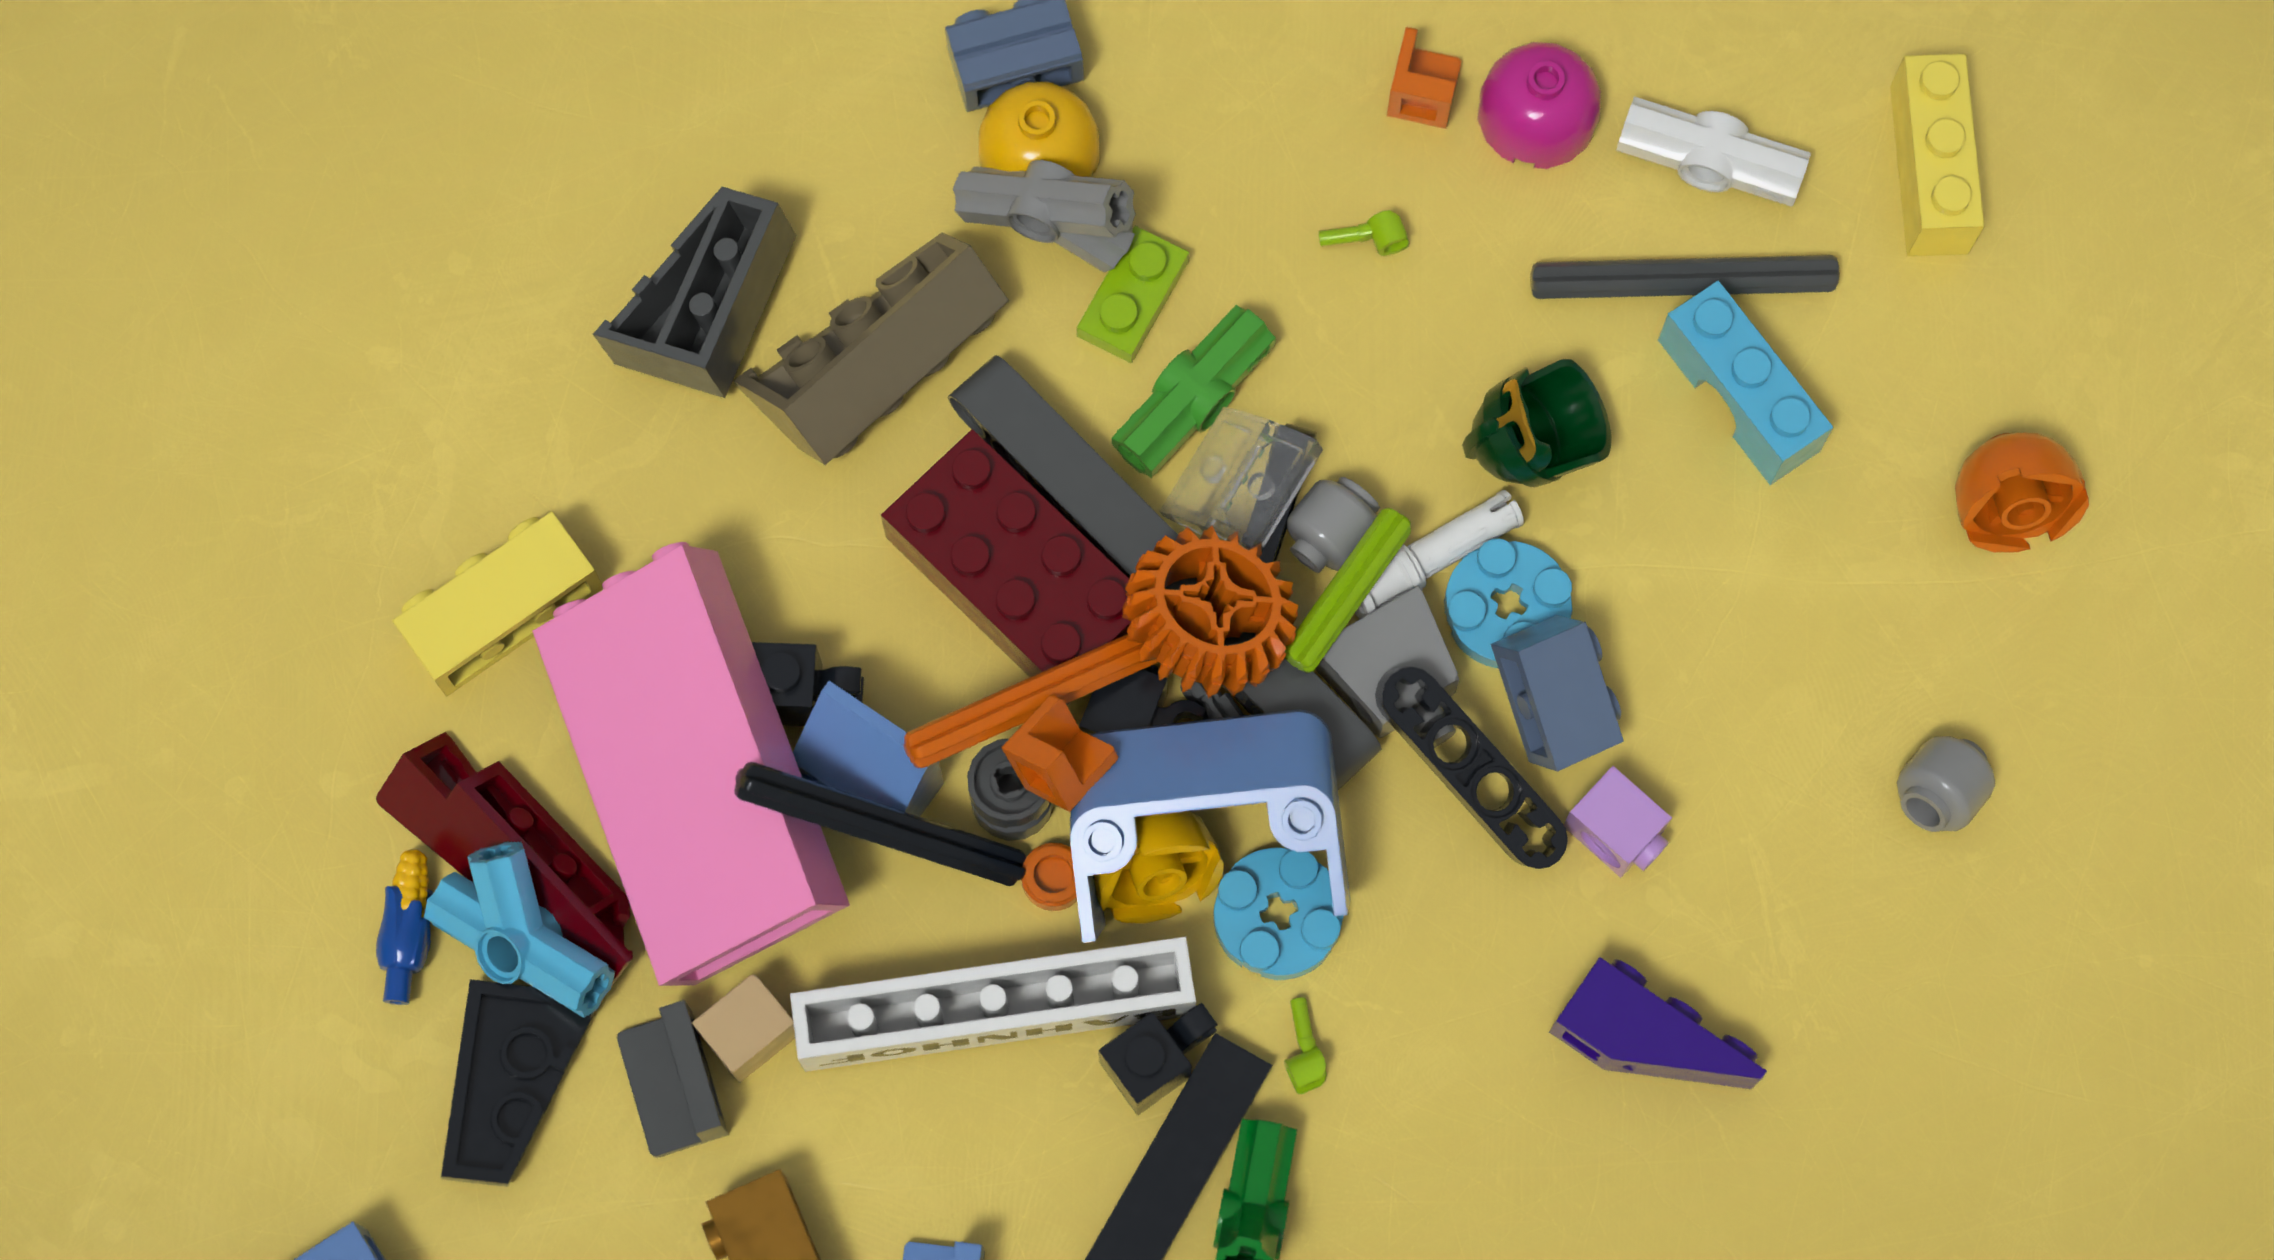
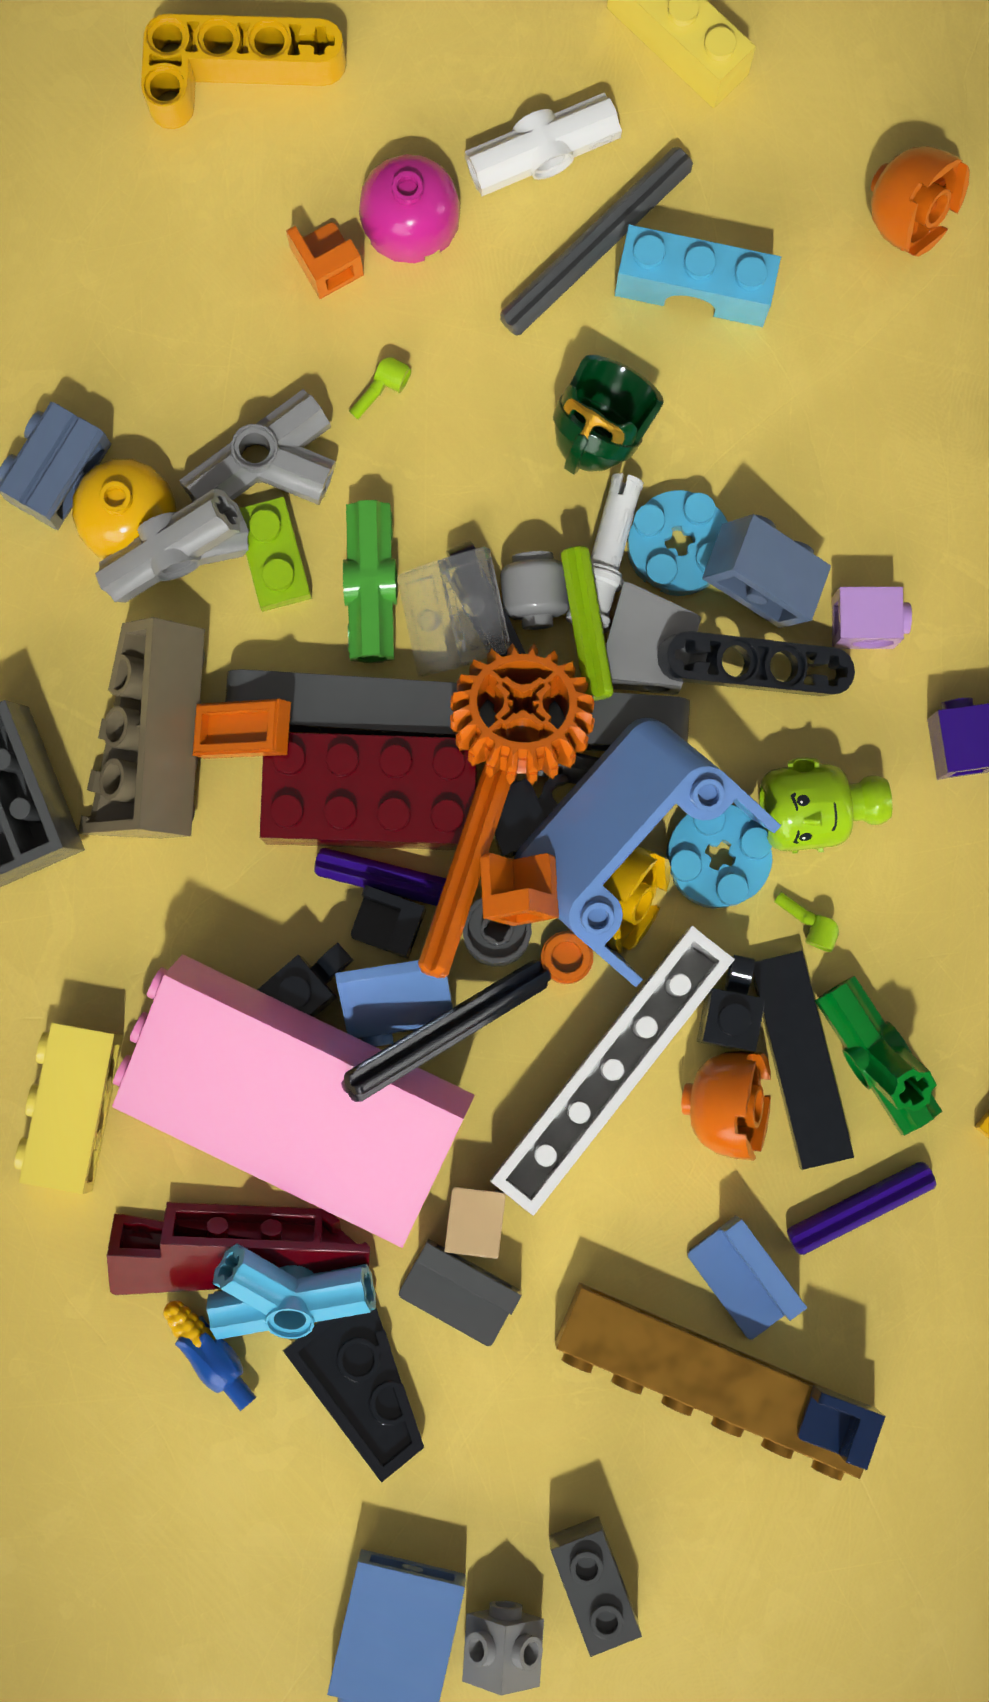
camera: 45 degrees left, 10 degrees up
(922, 691) = (388, 922): none -> black panel
(952, 645) = (379, 875): none -> dark purple axle
(955, 409) = (242, 729): none -> orange tile
(1073, 1136) = (729, 1103): none -> orange cylinder
(1214, 226) = (288, 463): none -> light grey piece
(1406, 943) = (820, 805): none -> lime piece

